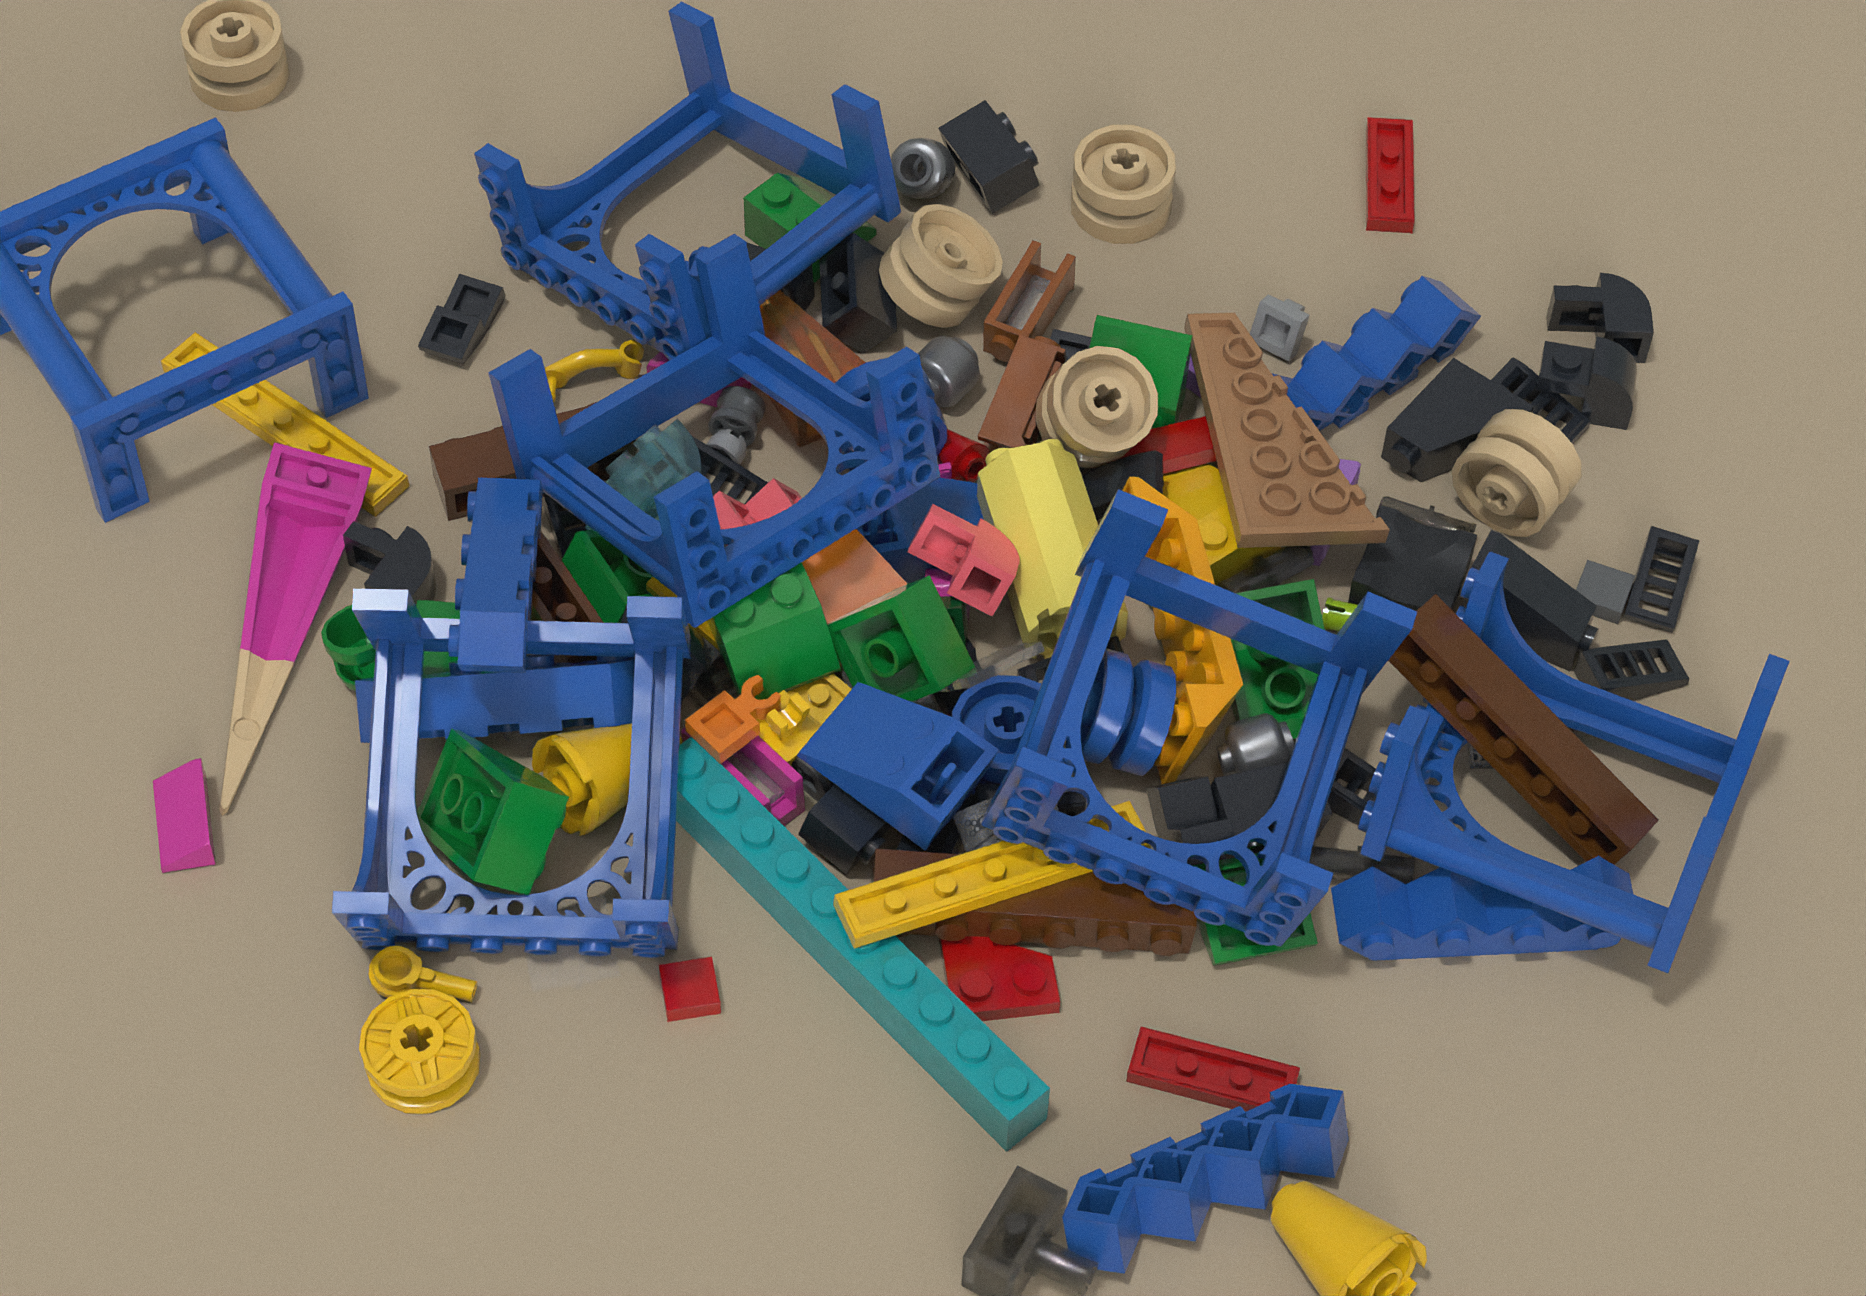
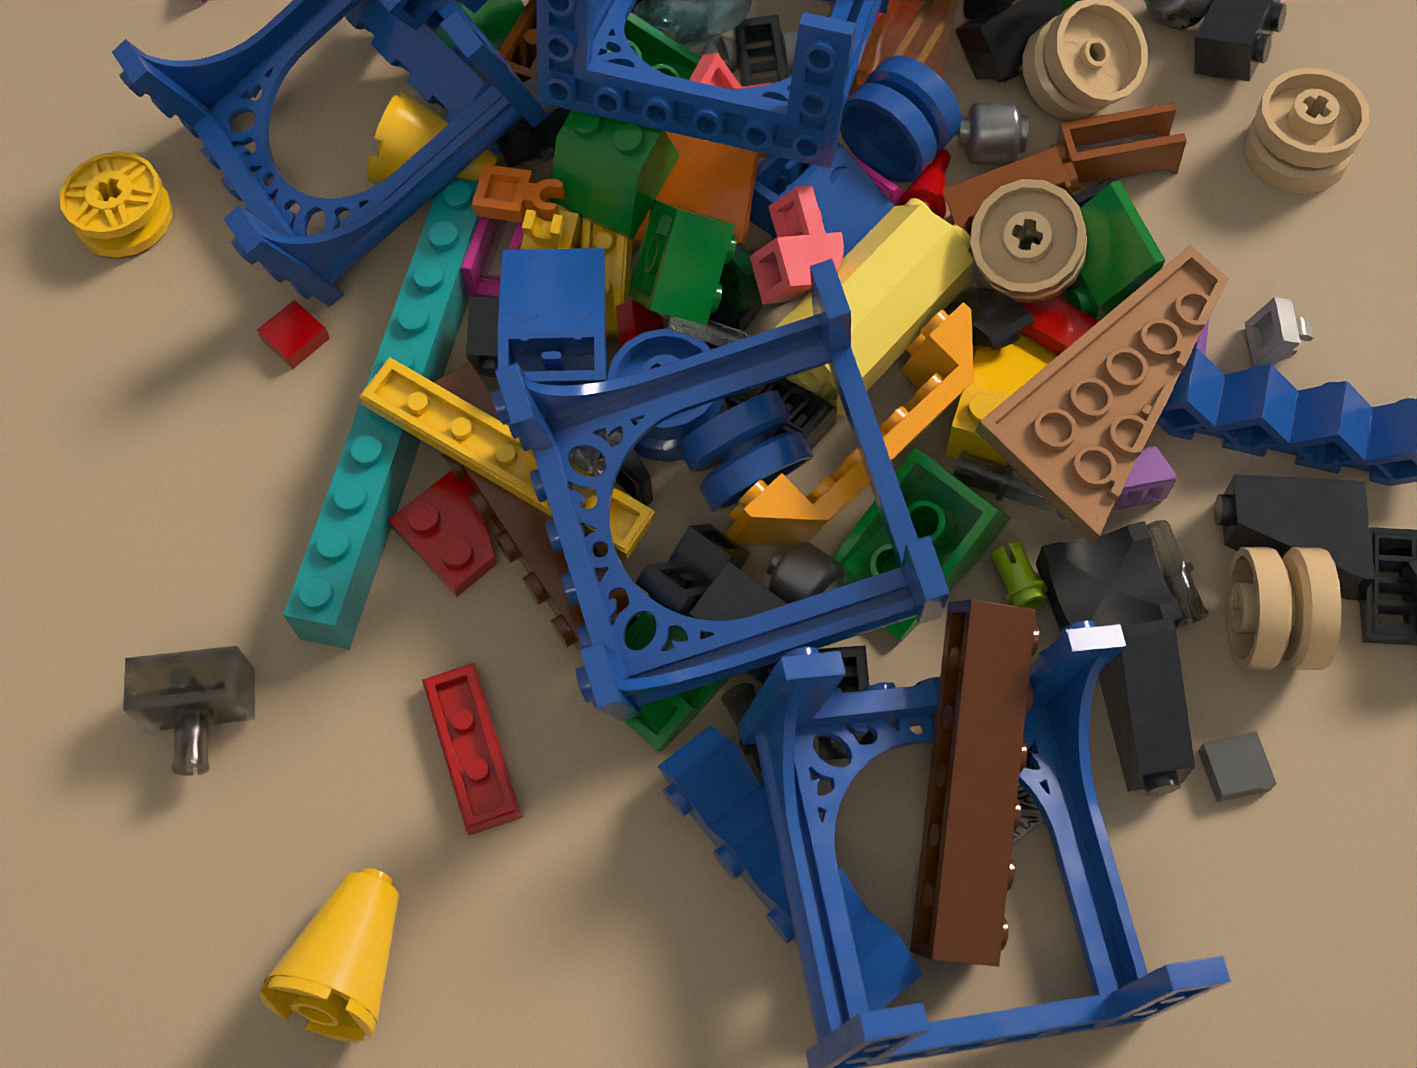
camera: 60 degrees right, 10 degrees up
(400, 969) = (179, 154): yellow plate -> none
(490, 814) = (316, 113): green slope -> none
(1228, 1162) = (326, 784): blue brick -> none
(1596, 662) = (1162, 816): black slope -> none
(1671, 546) = (1339, 794): black slope -> none

